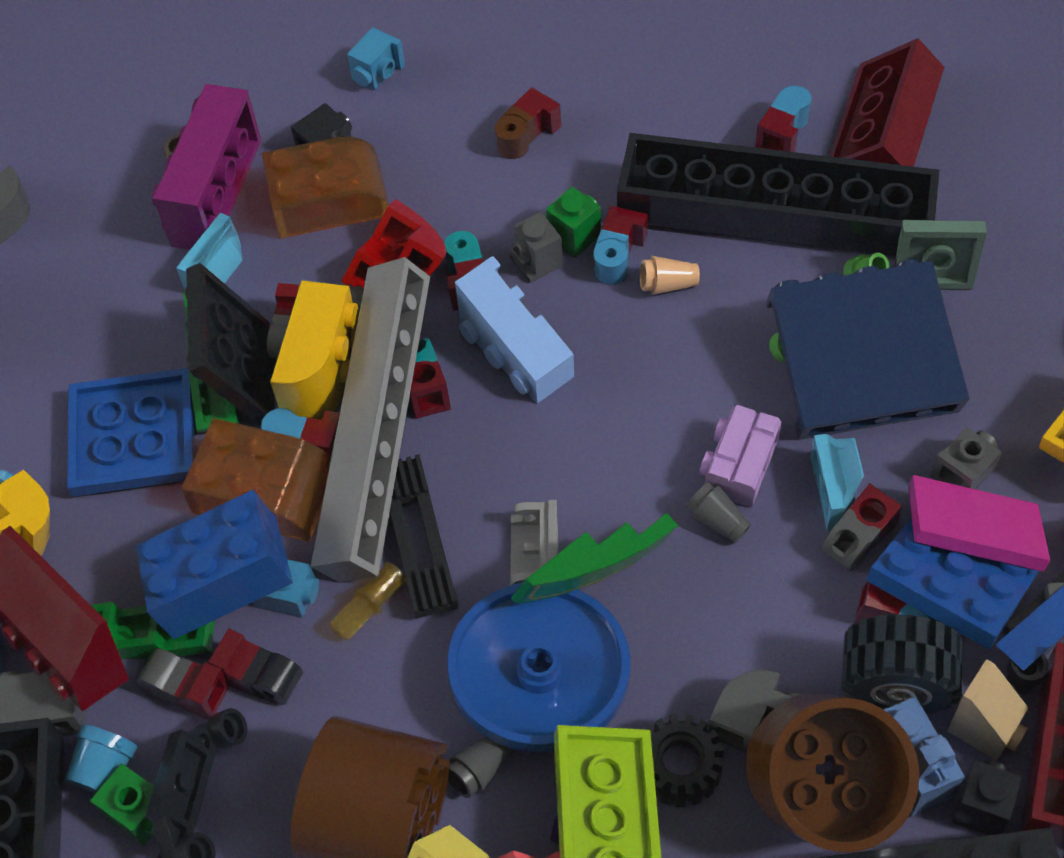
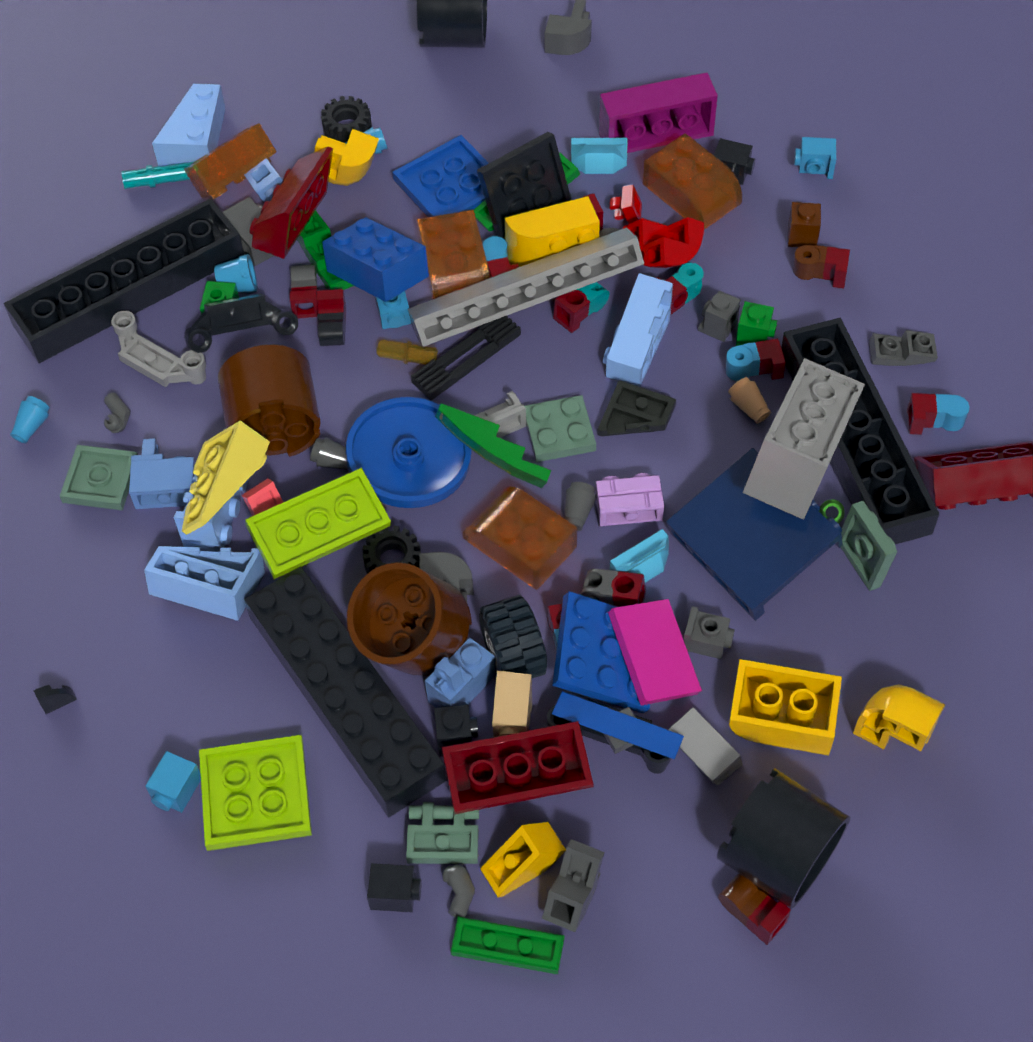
camera: 60 degrees right, 0 degrees up
(312, 262) = (627, 206): none -> red tile
(463, 113) = (804, 224): none -> reddish brown brick
(589, 483) = (559, 428): none -> sand green plate
(614, 392) = (635, 411): none -> pearl dark grey wing
(681, 109) = (909, 349): none -> dark grey slope
(730, 593) = (523, 536): none -> clear orange brick
(821, 221) = (803, 438): none -> light grey hose

